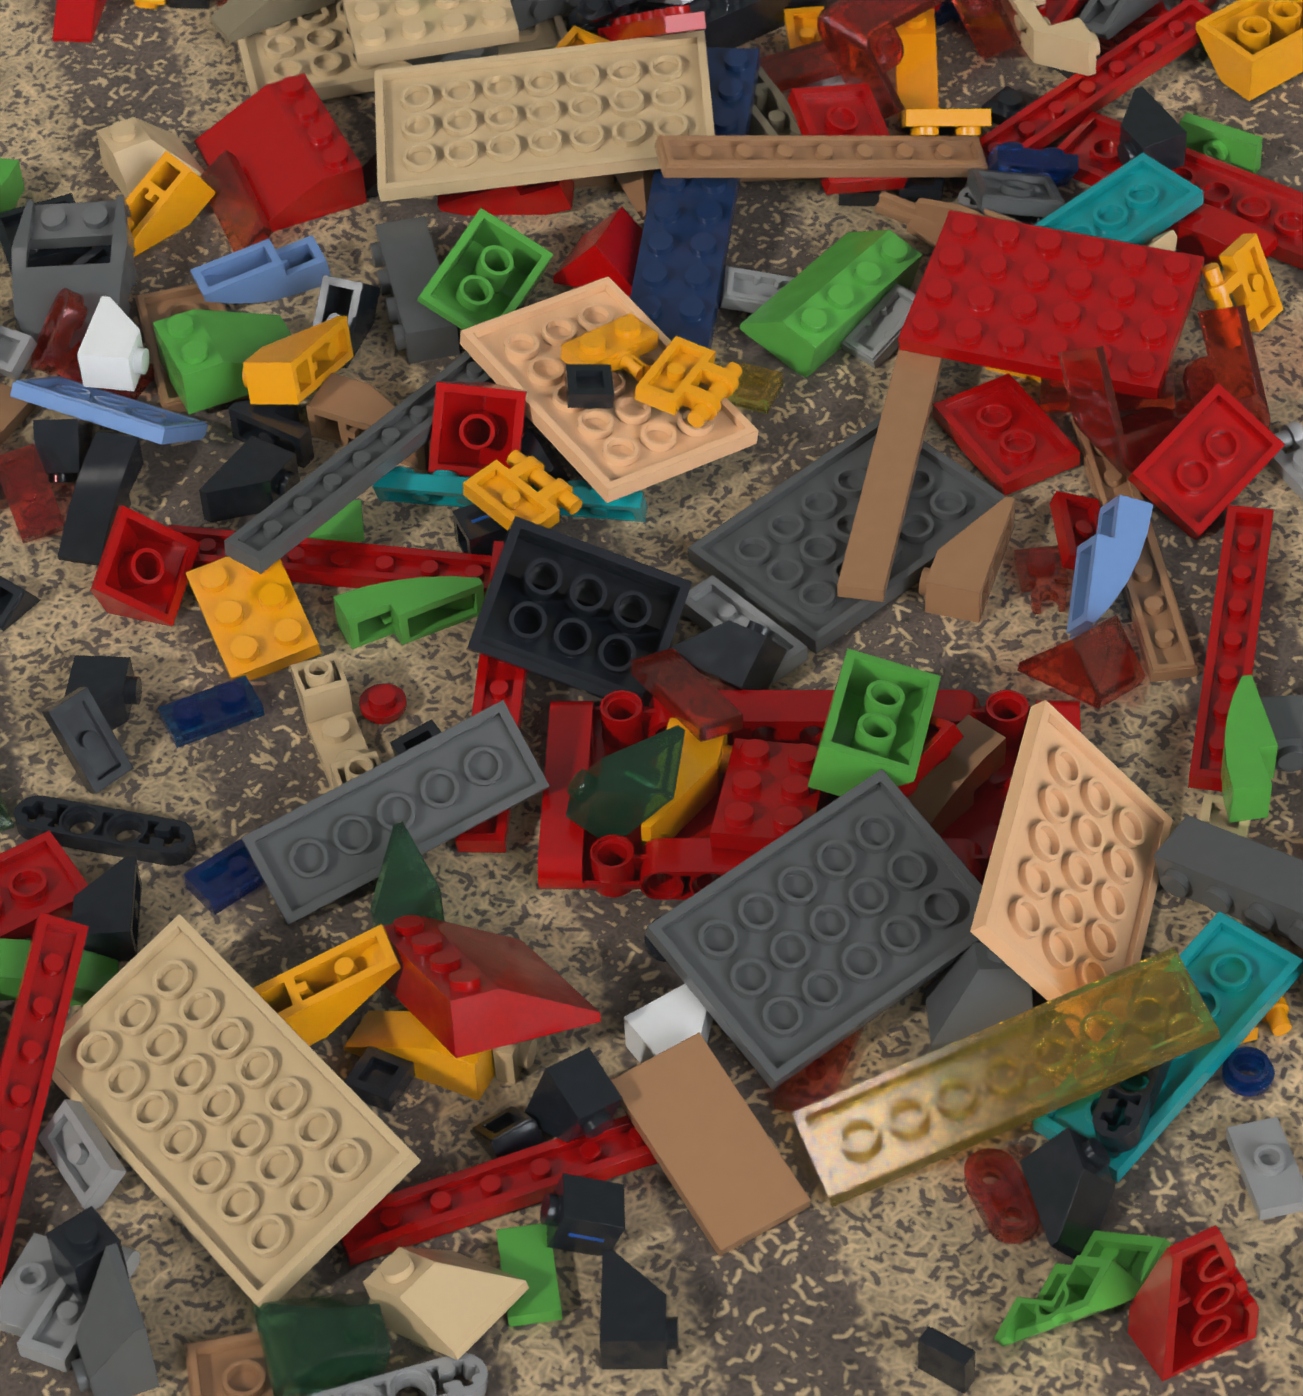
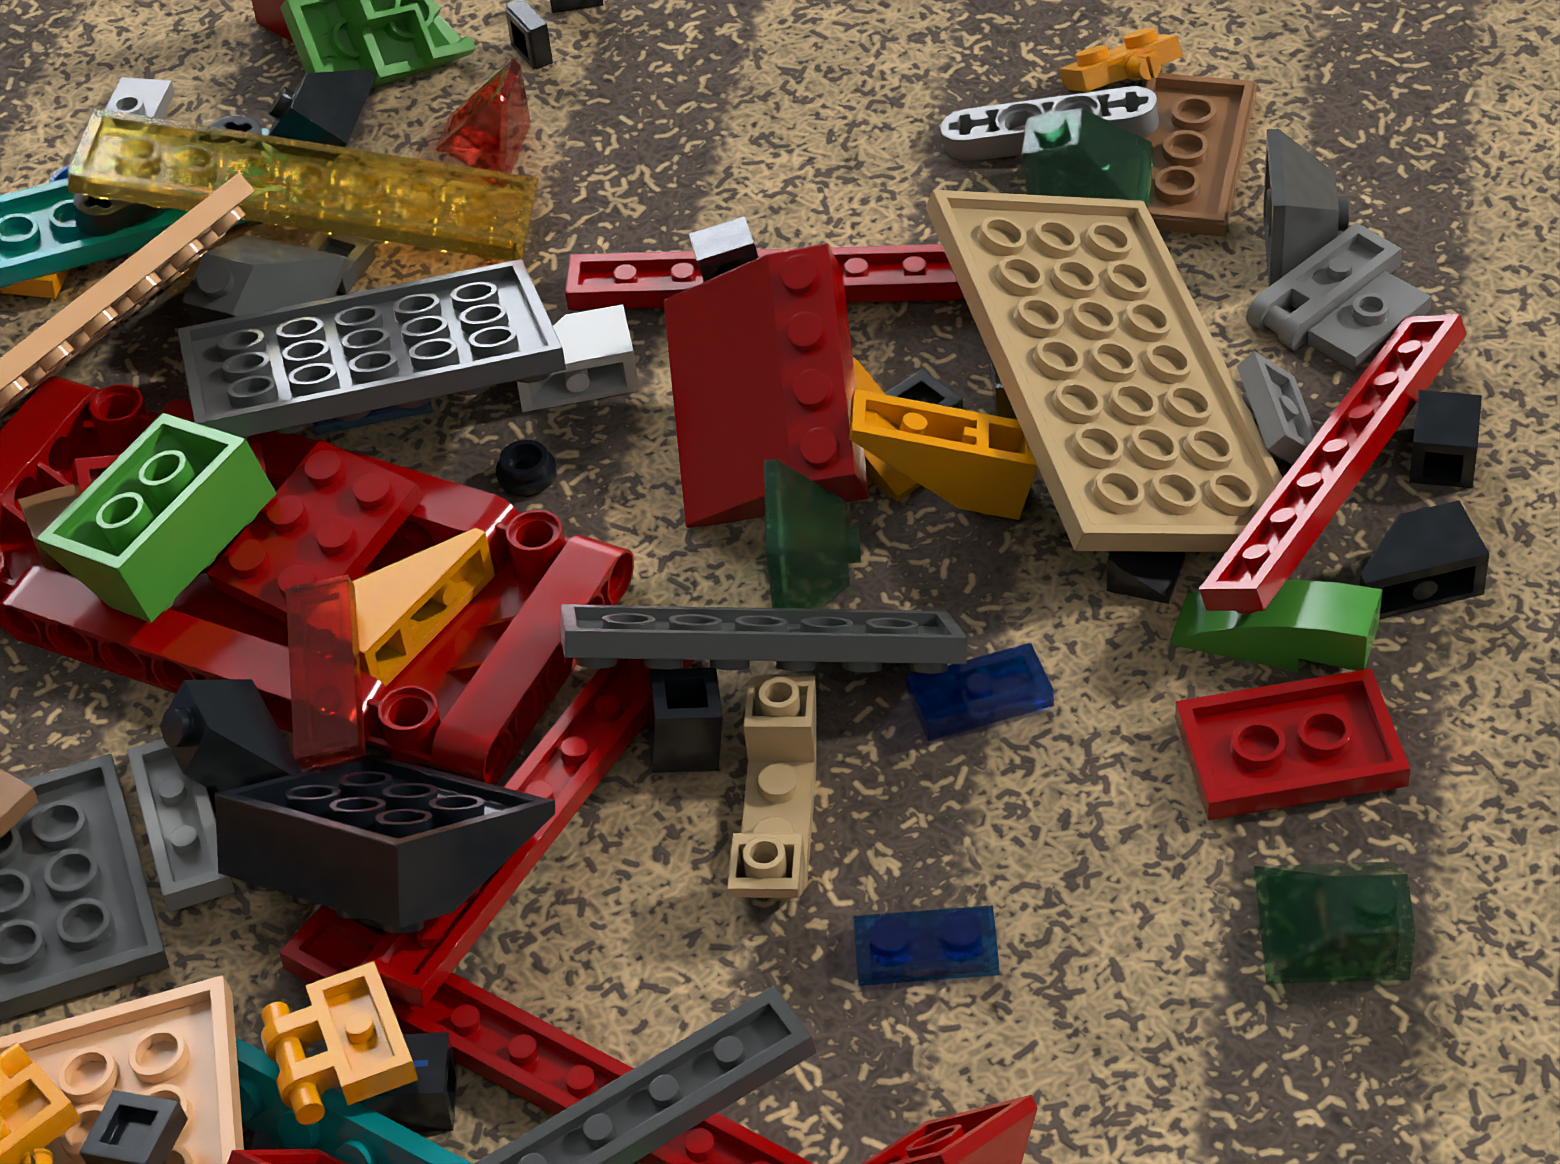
camera: 155 degrees left, 0 degrees up
(79, 1248) = (1305, 260): black brick -> none
(87, 740) = (1120, 896): black plate -> none
(108, 825) = (1140, 801): black beam -> none
(110, 683) = (1082, 990): black slope -> none
(111, 911) = (1167, 661): black slope -> none
(253, 617) = (833, 1095): light orange plate -> none
(383, 703) = (691, 872): red plate -> none
(407, 608) = (588, 991): bright green slope -> none
(441, 1297) = (952, 159): tan slope -> none
(526, 1256) = (858, 204): bright green tile -> none
(584, 1215) = (781, 206): black brick -> none
(627, 785) = (464, 574): clear green slope -> none
(633, 1319) = (786, 127): black slope -> none
(710, 1144) = (622, 236): medium nougat tile -> none
(917, 1245) = (490, 123): none -> clear red slope
(1002, 1199) = (383, 130): clear red plate -> none

